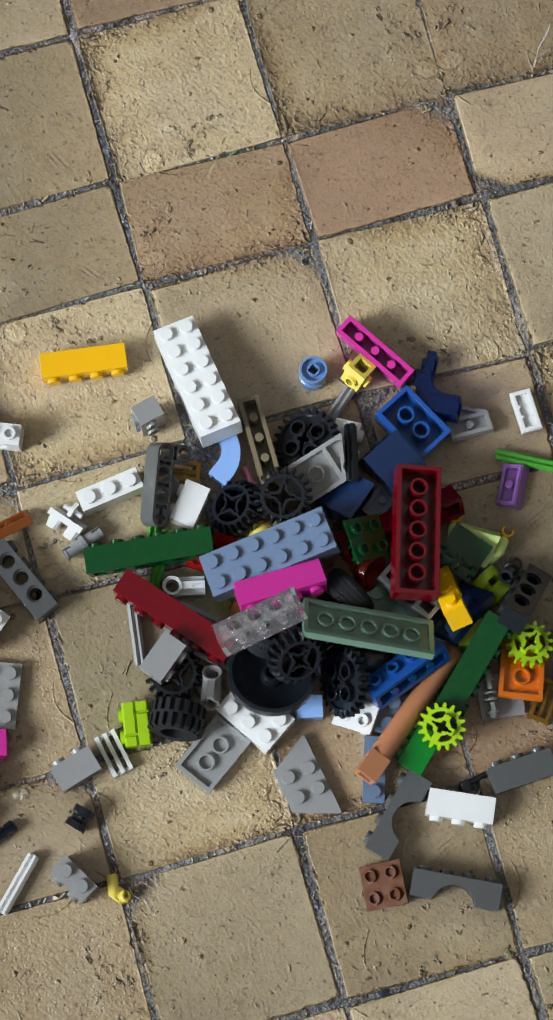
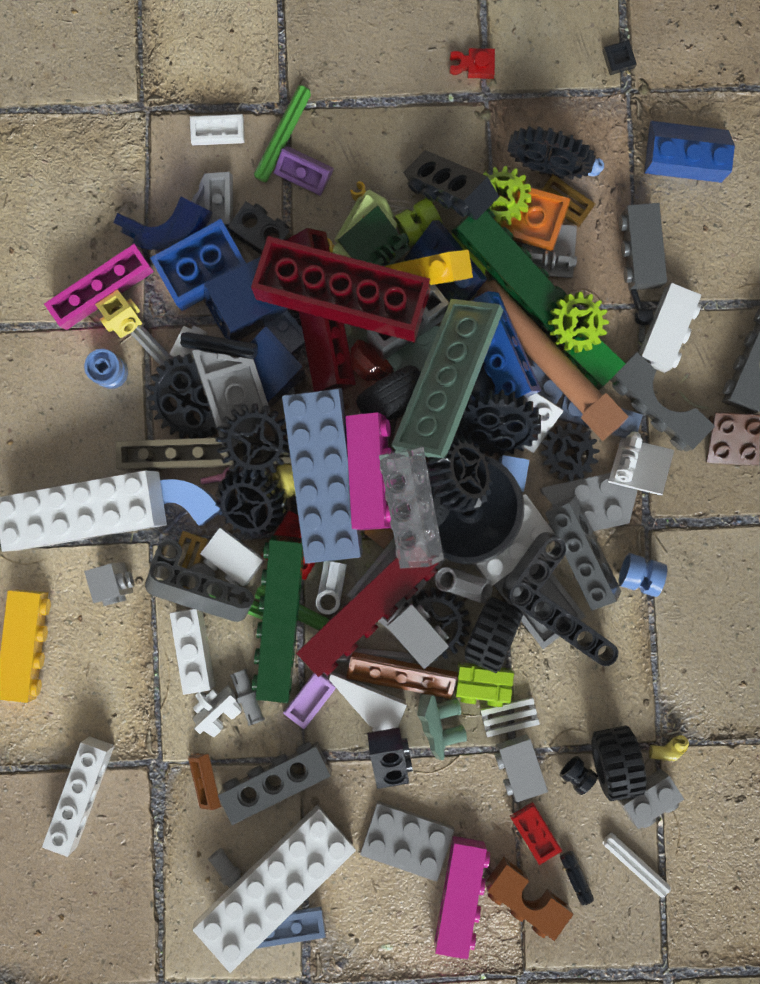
camera: 75 degrees left, 10 degrees up
(25, 795) = (535, 833): none -> red plate
(61, 661) = (389, 758): none -> black brick
(91, 592) = (309, 700): none -> lavender tile
(98, 642) = (374, 706): none -> white slope
(98, 842) = (618, 763): none -> black tyre
(100, 688) = (430, 715): none -> sand green connector
(127, 658) = (401, 675): none -> dark orange tile
(208, 761) = (551, 610): none -> black beam
(253, 831) = (640, 574): none -> medium blue wheel
(259, 777) = (584, 553): none -> dark grey brick
(342, 809) = (641, 465): none -> white hinge
(344, 758) = (564, 442): none -> black gear
(366, 538) = (332, 352): dark green hinge -> none
(448, 462) = (256, 236): none -> black brick
(510, 570) = (407, 195): black pin -> none

